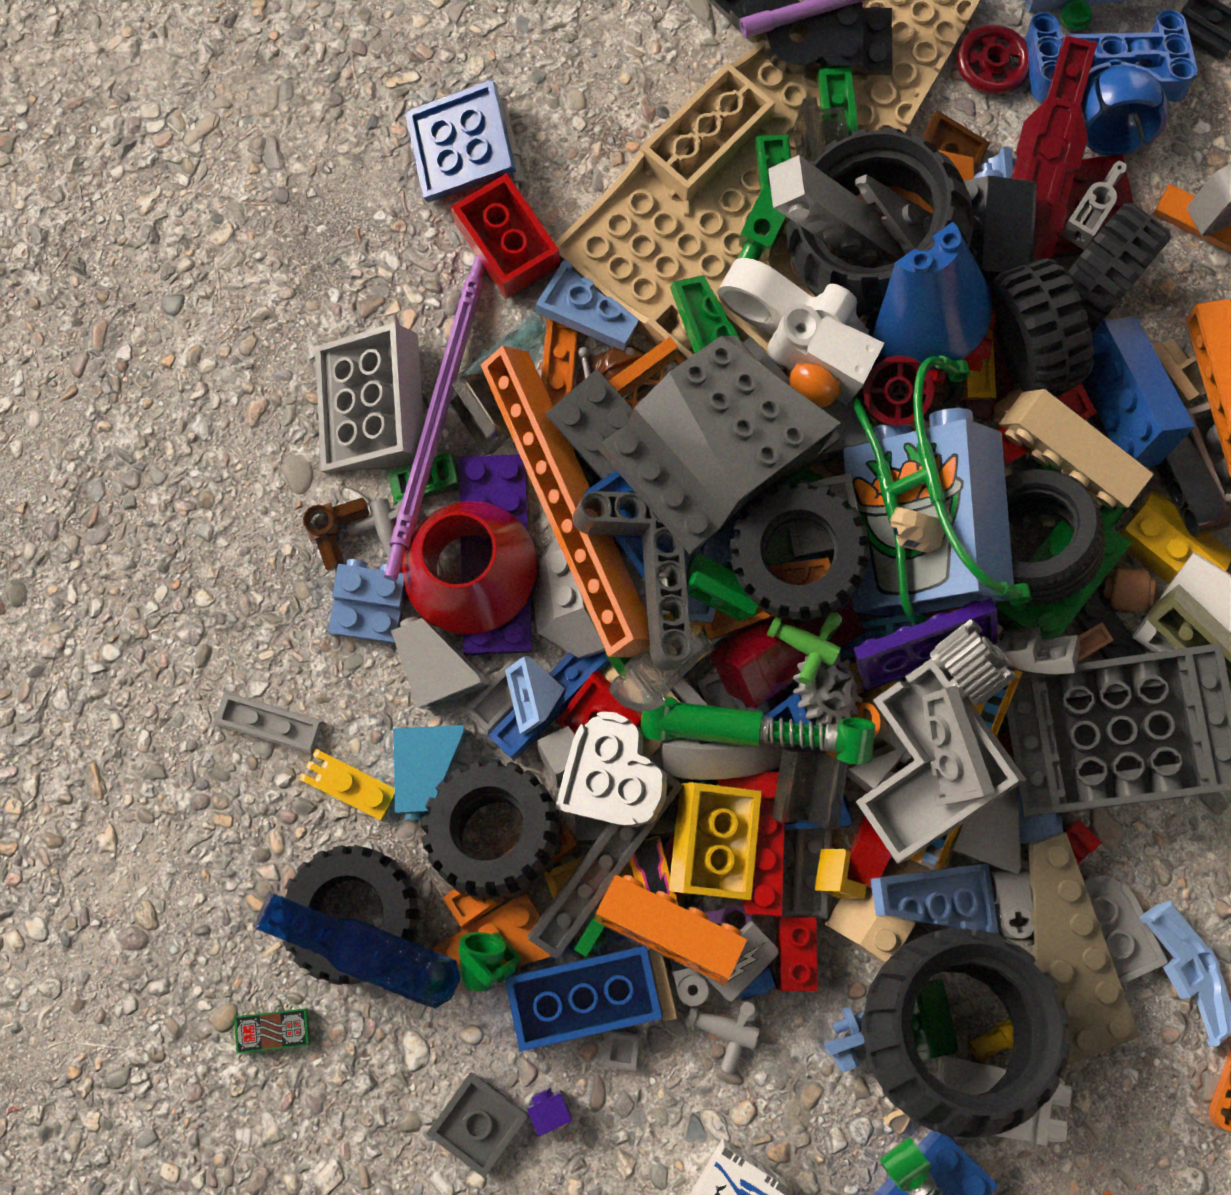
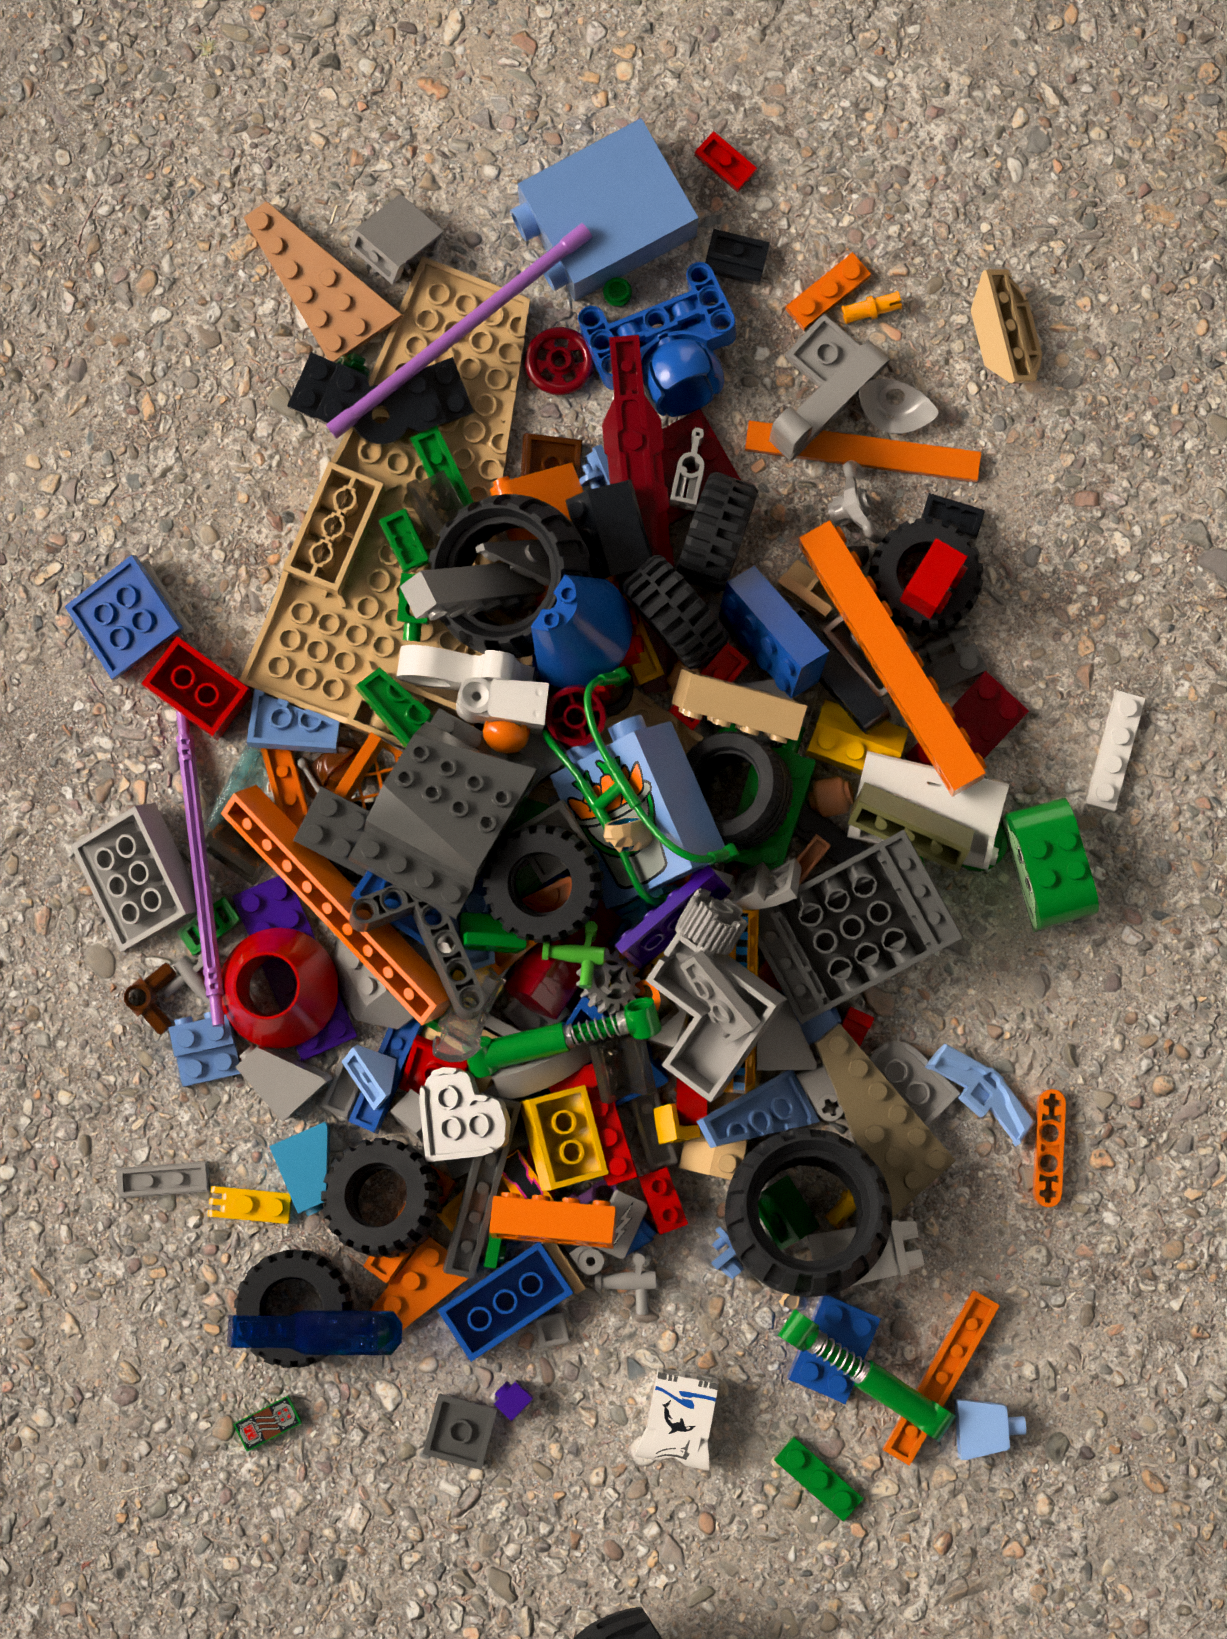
camera: 20 degrees left, 5 degrees up
(481, 960) = (414, 1303): green piece -> none

